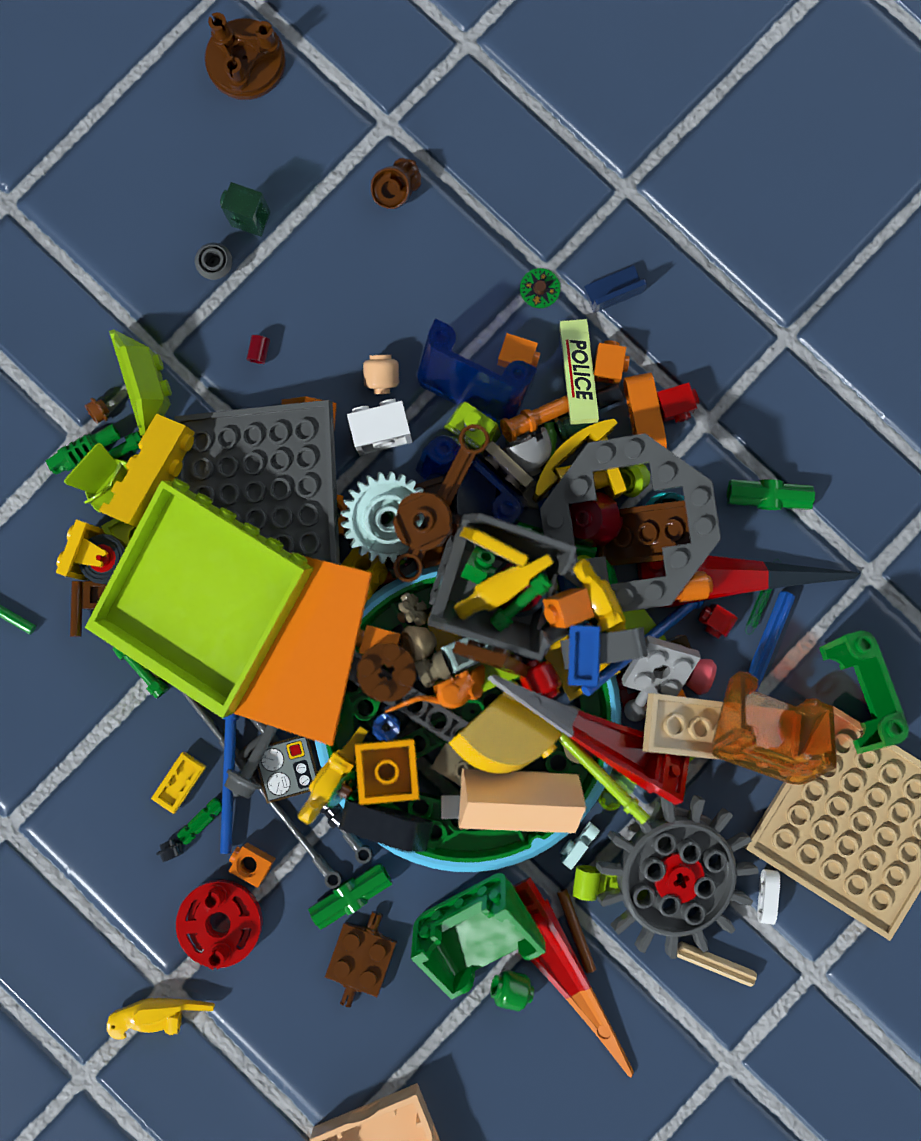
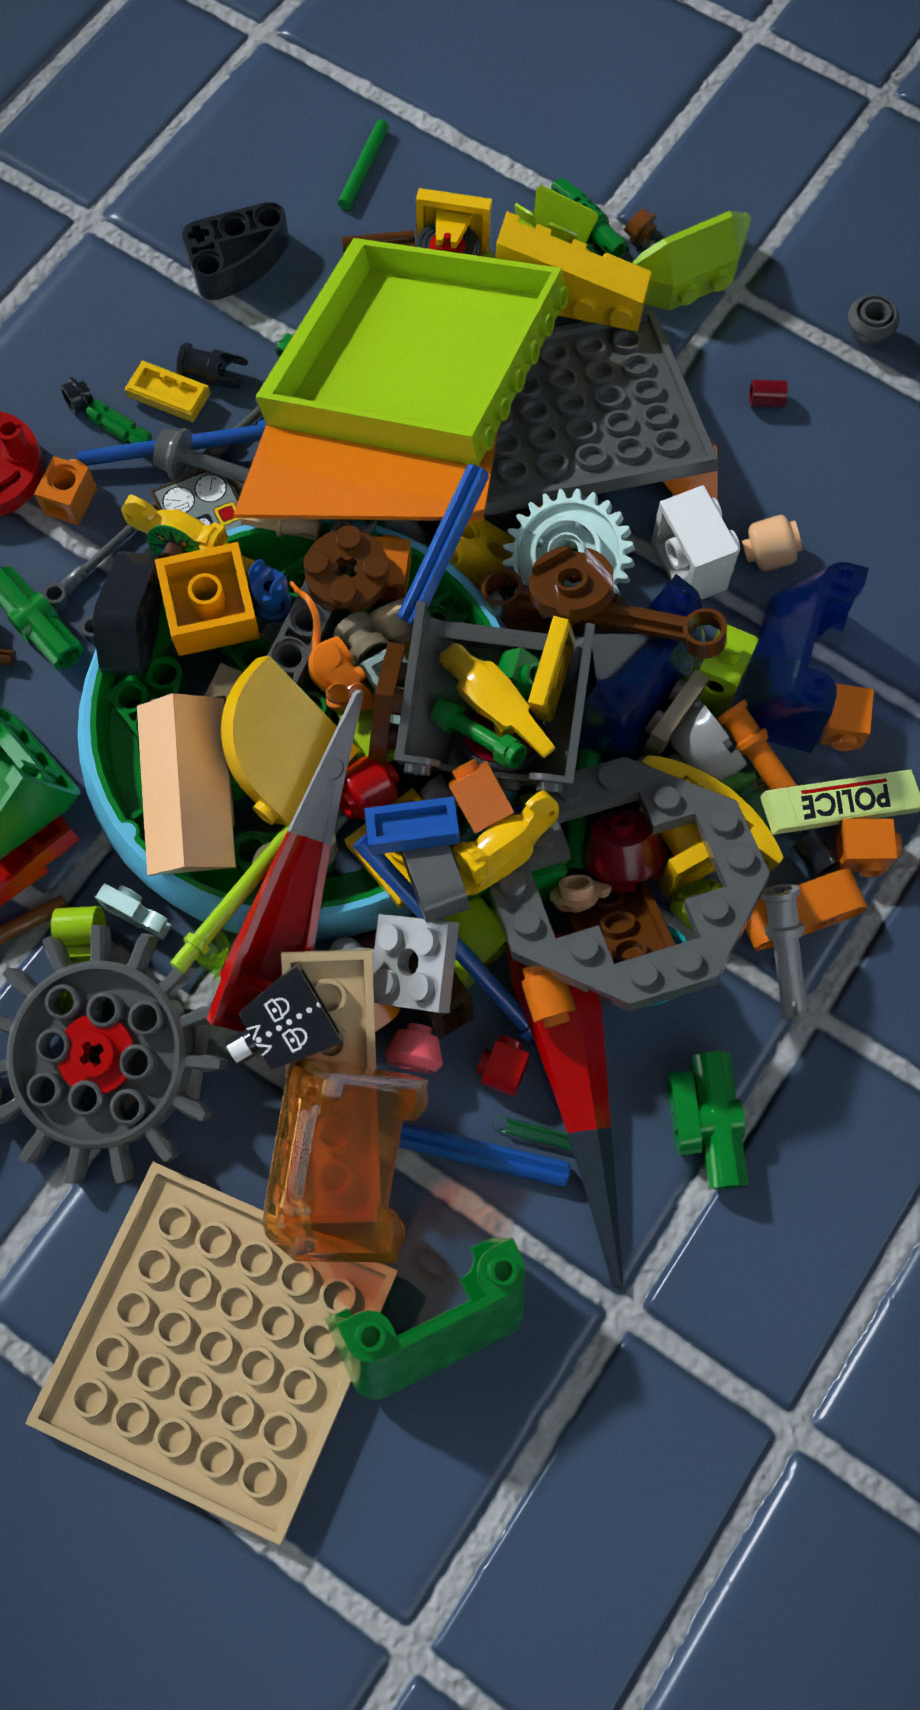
camera: 80 degrees right, 15 degrees down
(72, 718) = (235, 248): none -> black beam
(161, 751) = (208, 365): none -> black piece
(385, 603) = (444, 541): none -> blue axle
(412, 610) = (448, 603): dark tan plant -> none
(620, 554) = (578, 893): none -> light nougat animal
(666, 429) = (785, 932): none -> light grey pin
(678, 403) = (830, 953): red brick -> none
(692, 754) = (285, 1023): none -> black torso
(764, 515) = (684, 1112): none -> green beam
(768, 896) = (81, 1211): white beam -> none

